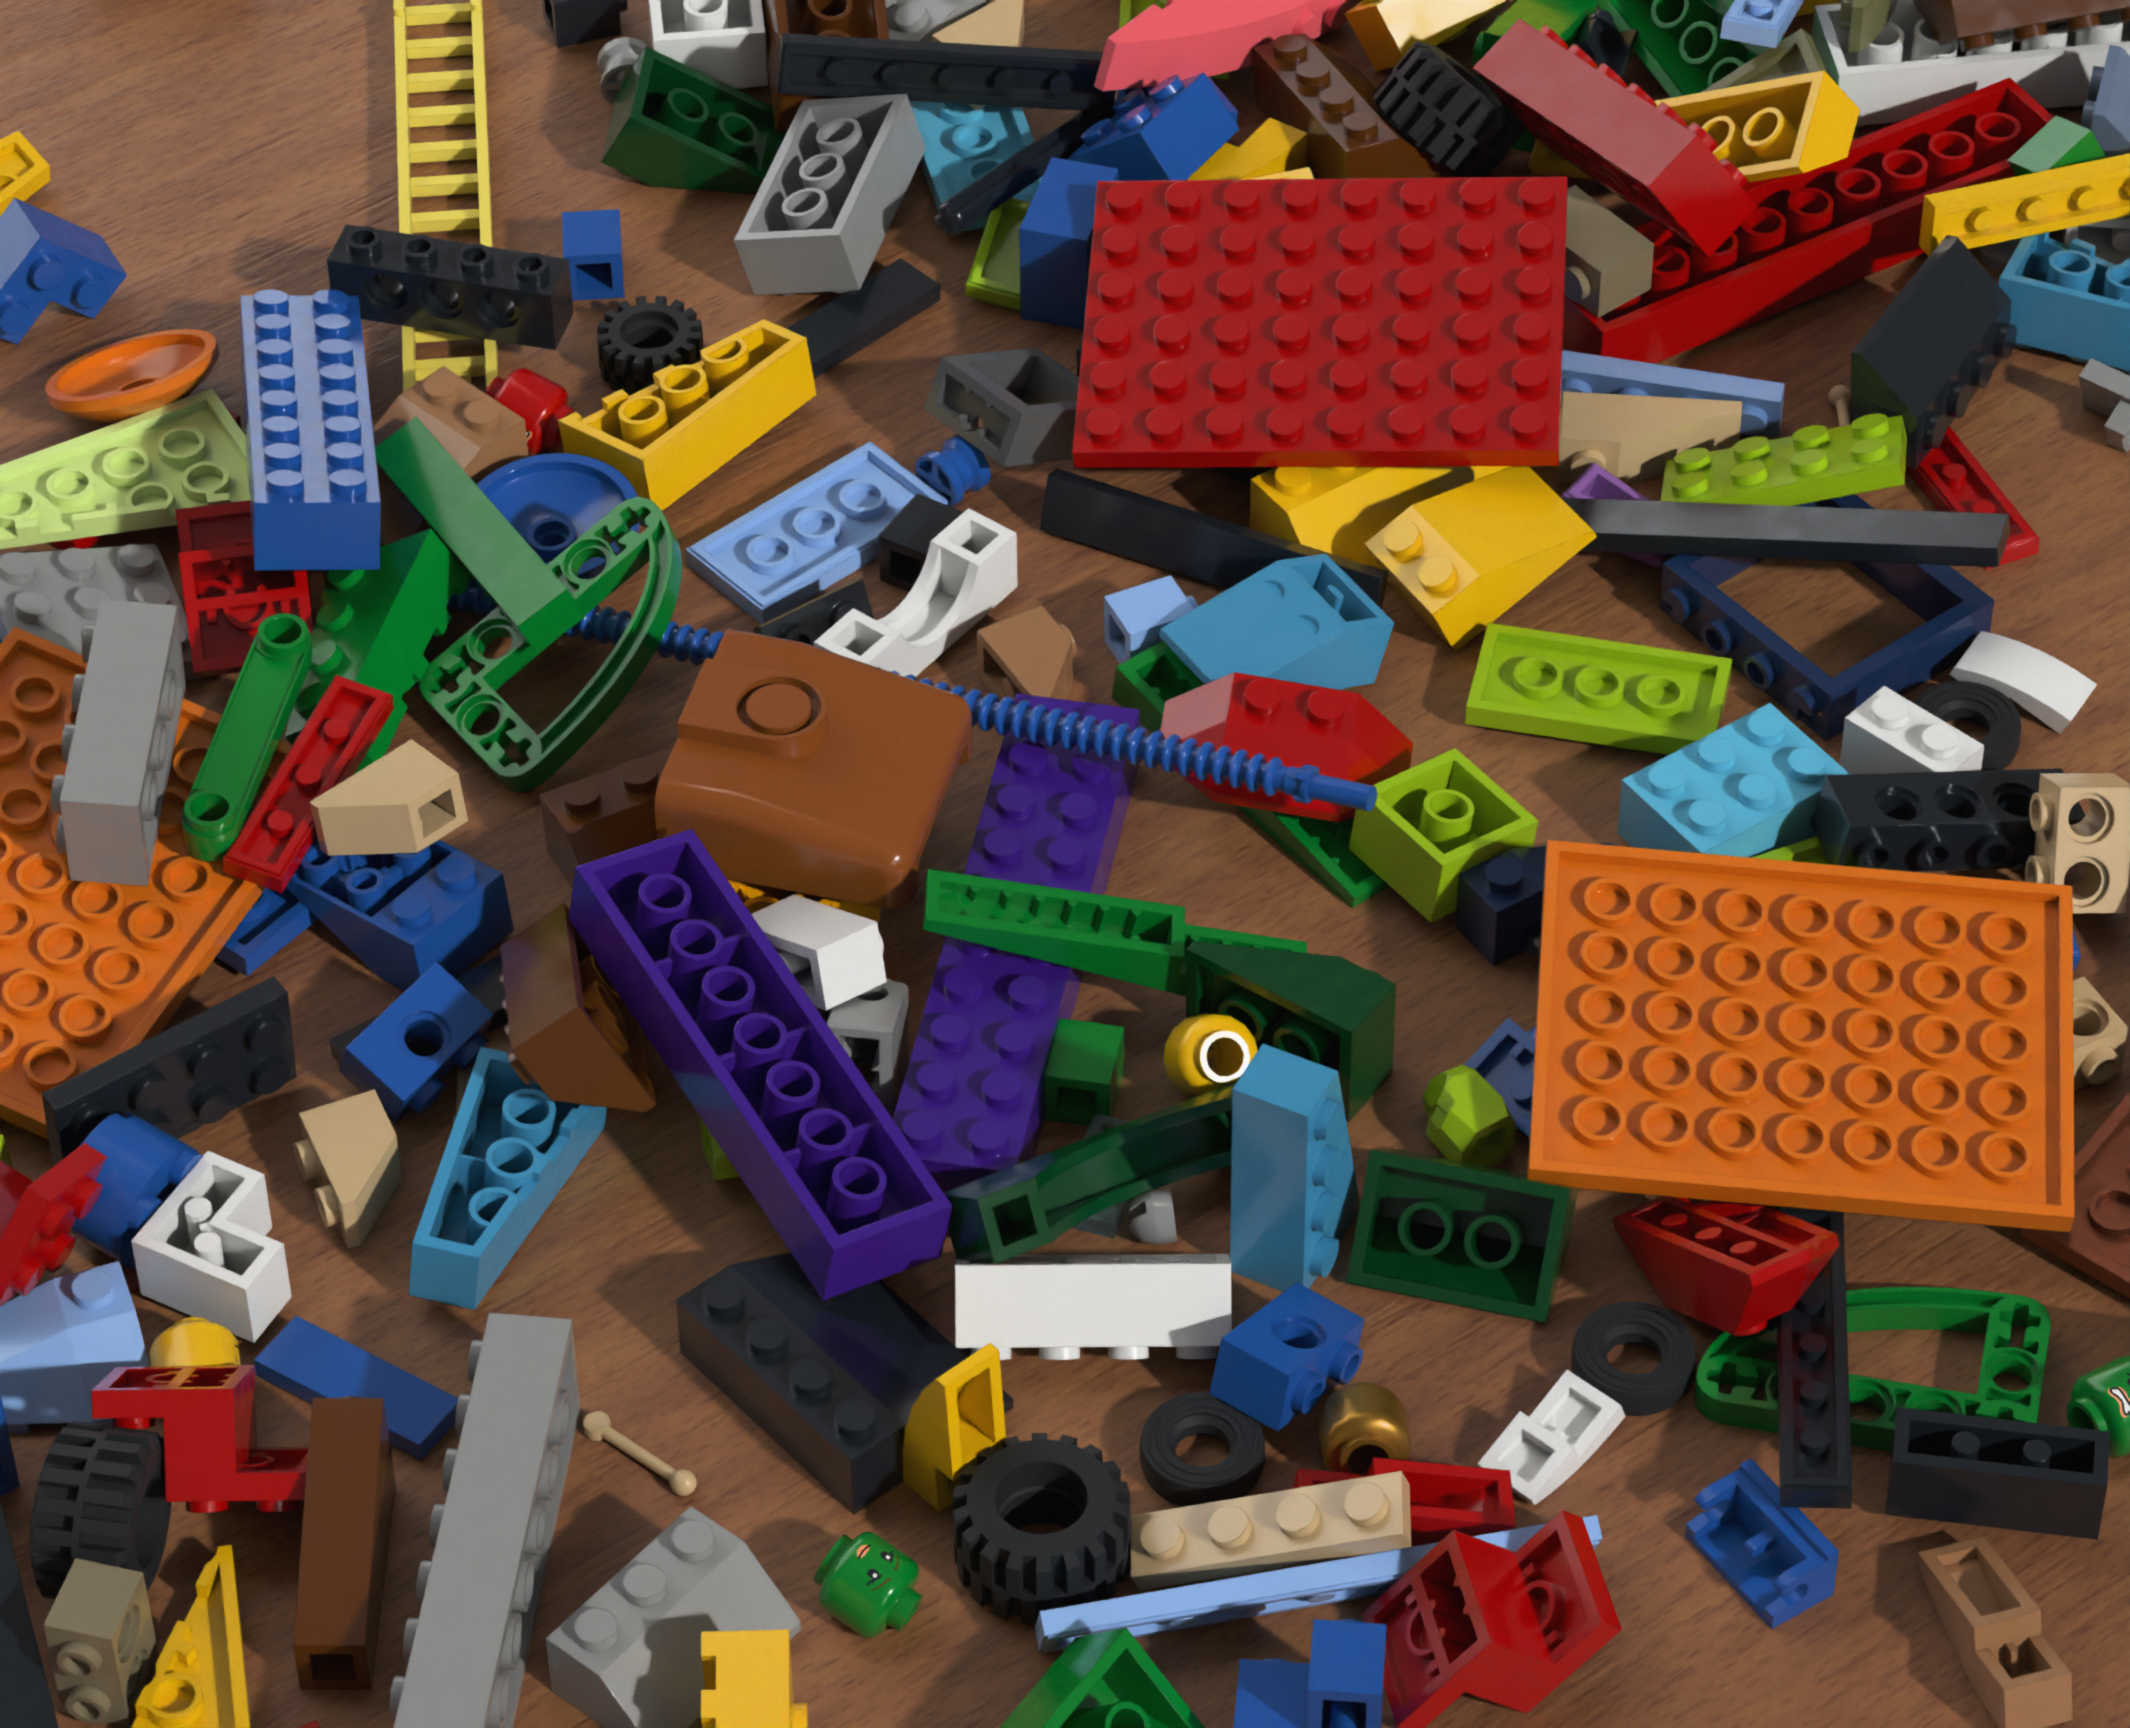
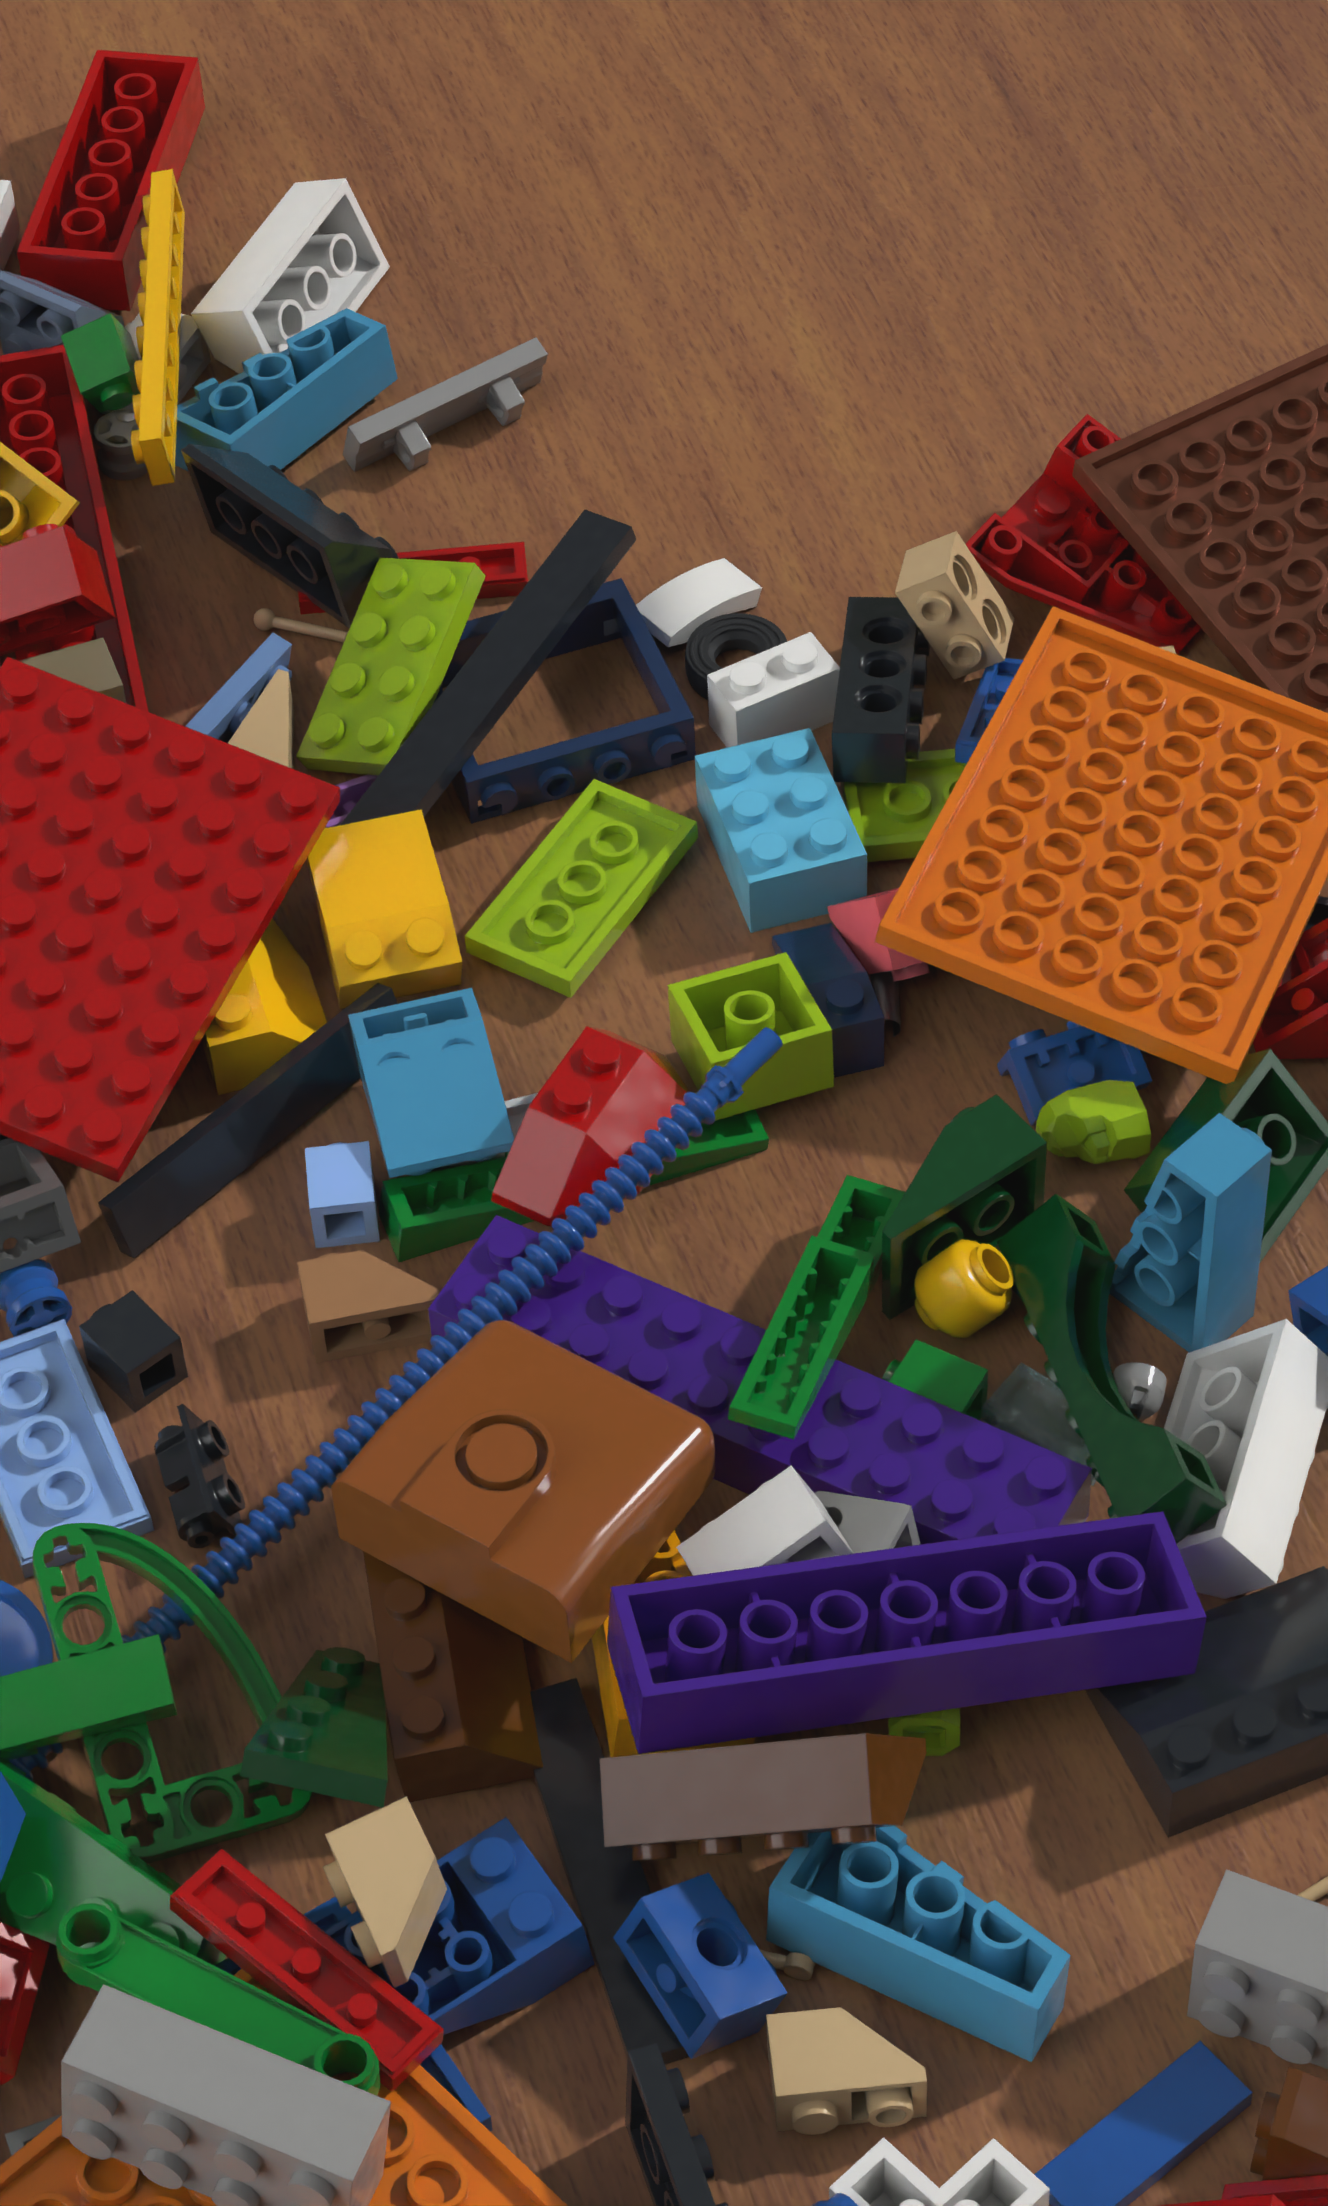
camera: 70 degrees left, 5 degrees up
(527, 729) = (326, 1731): none -> dark green wing
(962, 580) = (228, 1357): white arch -> none

